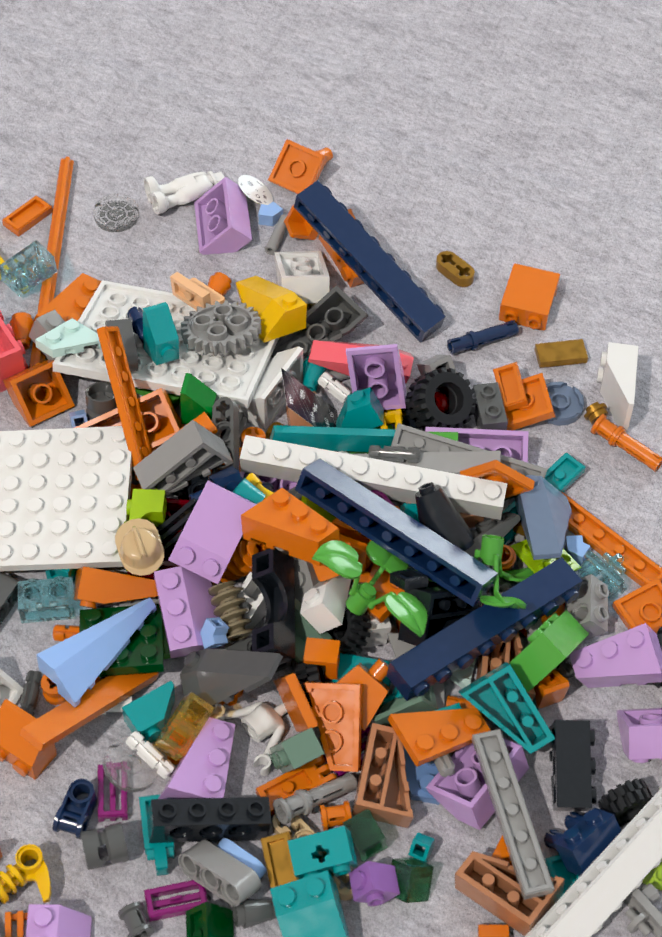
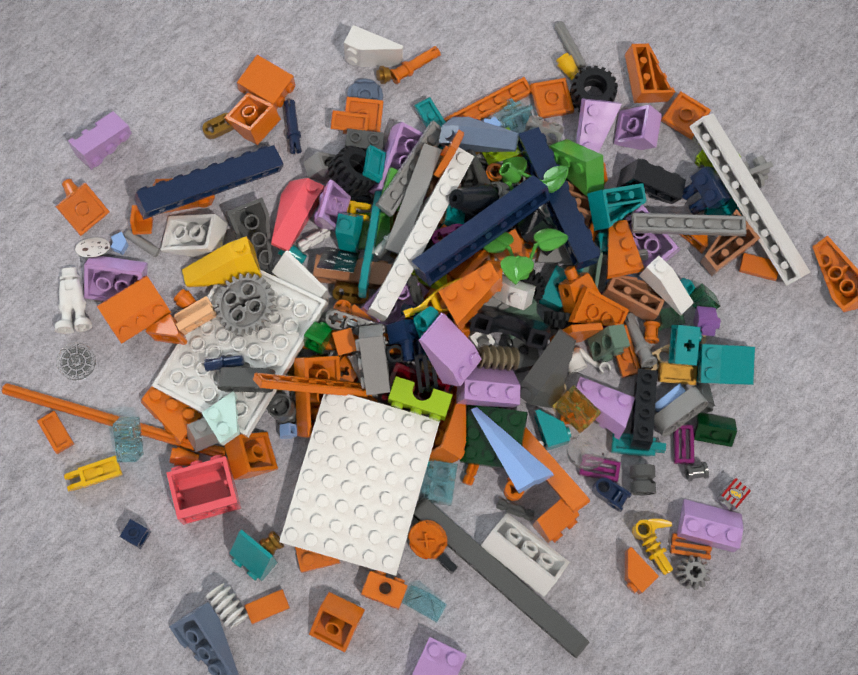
camera: 80 degrees left, 20 degrees up
(139, 547) = (440, 404): tan piece -> none
(150, 754) = (585, 436): white axle -> none
(160, 334) = (250, 348): teal slope -> none
(170, 267) = (166, 331): none -> orange slope
(188, 237) = (134, 309): none -> orange slope
(214, 633) = (514, 372): light blue piece -> none
(325, 653) = (549, 306): orange panel -> none
(386, 163) = (101, 140): none -> lavender wedge
(394, 453) = (402, 214): dark grey axle -> none
(403, 803) = (667, 285): none -> white slope
(409, 579) = (521, 232): black tile -> none
(457, 415) = (374, 164): none -> teal tile
(474, 293) = (253, 118): none -> orange slope
(561, 353) = (321, 80): pearl gold tile -> none
(626, 800) = (686, 158): black tyre -> none

